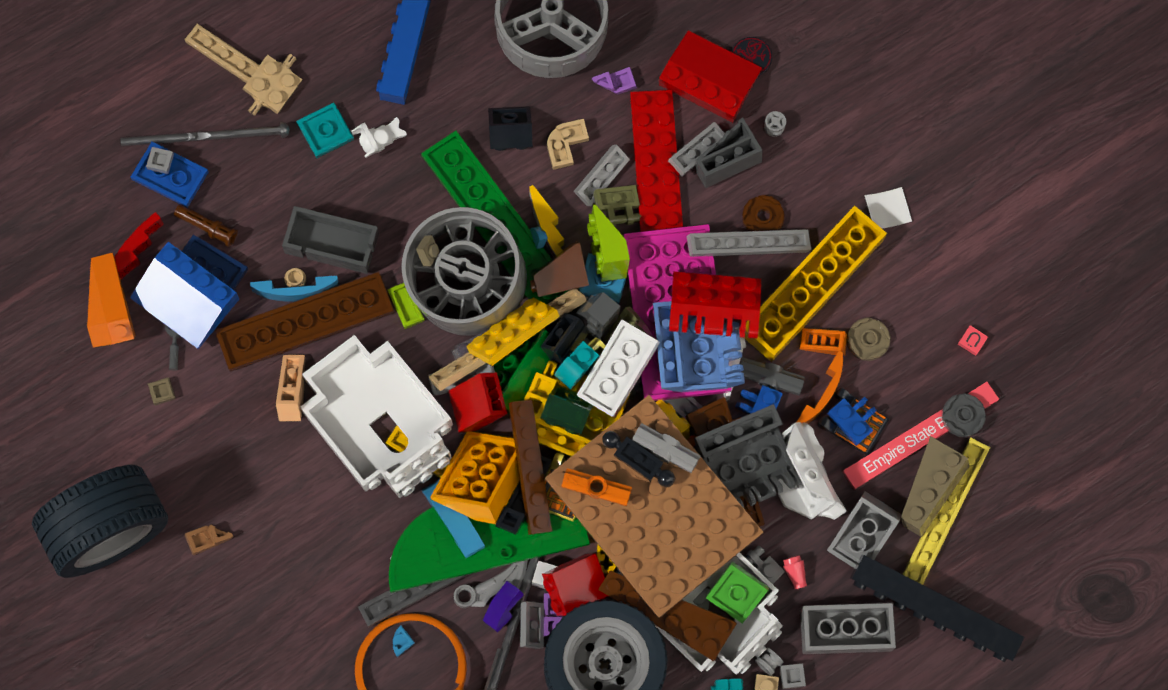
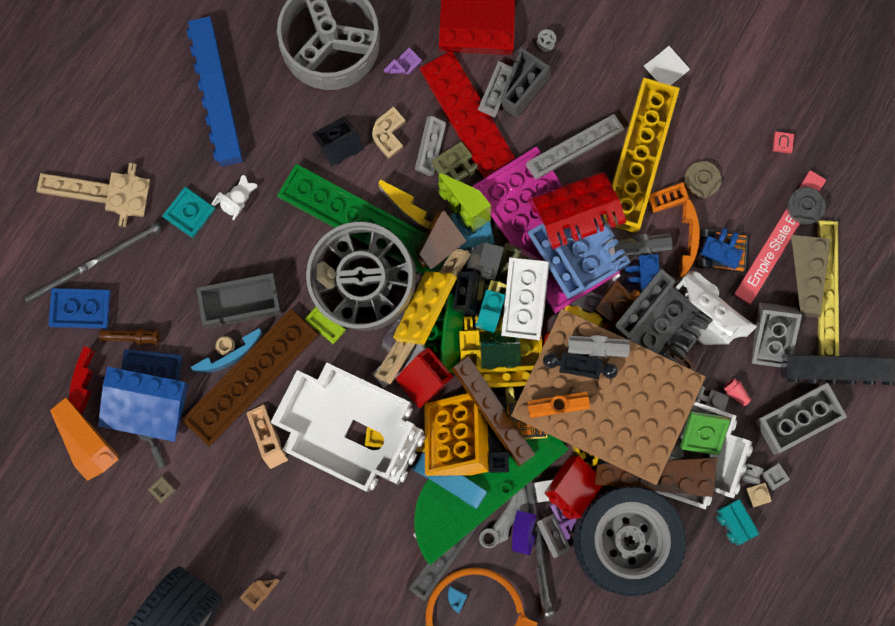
camera: 25 degrees left, 5 degrees up
(160, 160) = (66, 301): light grey plate -> none
(539, 237) = (406, 220): dark azure tile -> none
(766, 204) = (572, 108): reddish brown tile -> none

